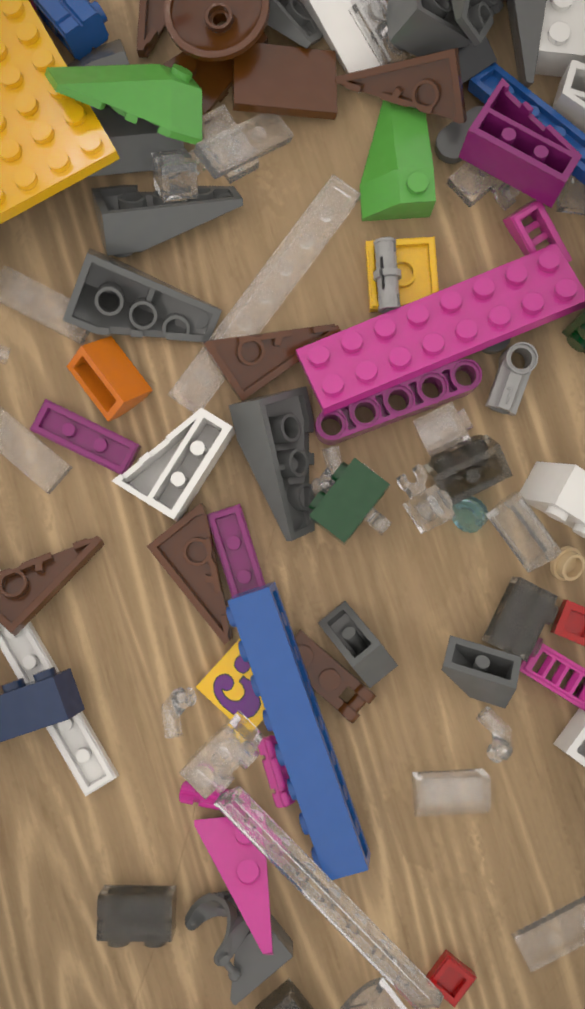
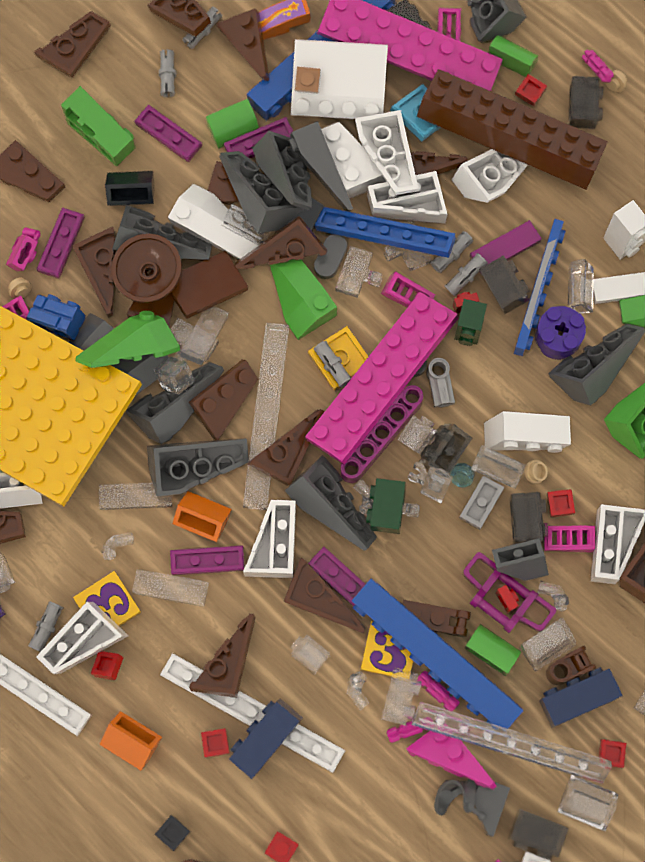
camera: 30 degrees left, 10 degrees down
(136, 915) = (405, 822): clear smoke brick -> none
(141, 631) = (309, 653): none -> clear brick
(223, 240) = (223, 398): none -> reddish brown wing
(357, 644) = (442, 587): dark grey slope -> none
(377, 760) = (492, 650): none -> bright green brick
(434, 707) = (507, 598): none -> red plate
(453, 888) = (580, 696): none -> dark blue brick
(463, 719) = (528, 595): none -> magenta bar
(469, 842) = (574, 665): none -> reddish brown piece
(473, 563) = (481, 502): none -> light grey plate
(519, 148) = (367, 252): magenta wedge -> none

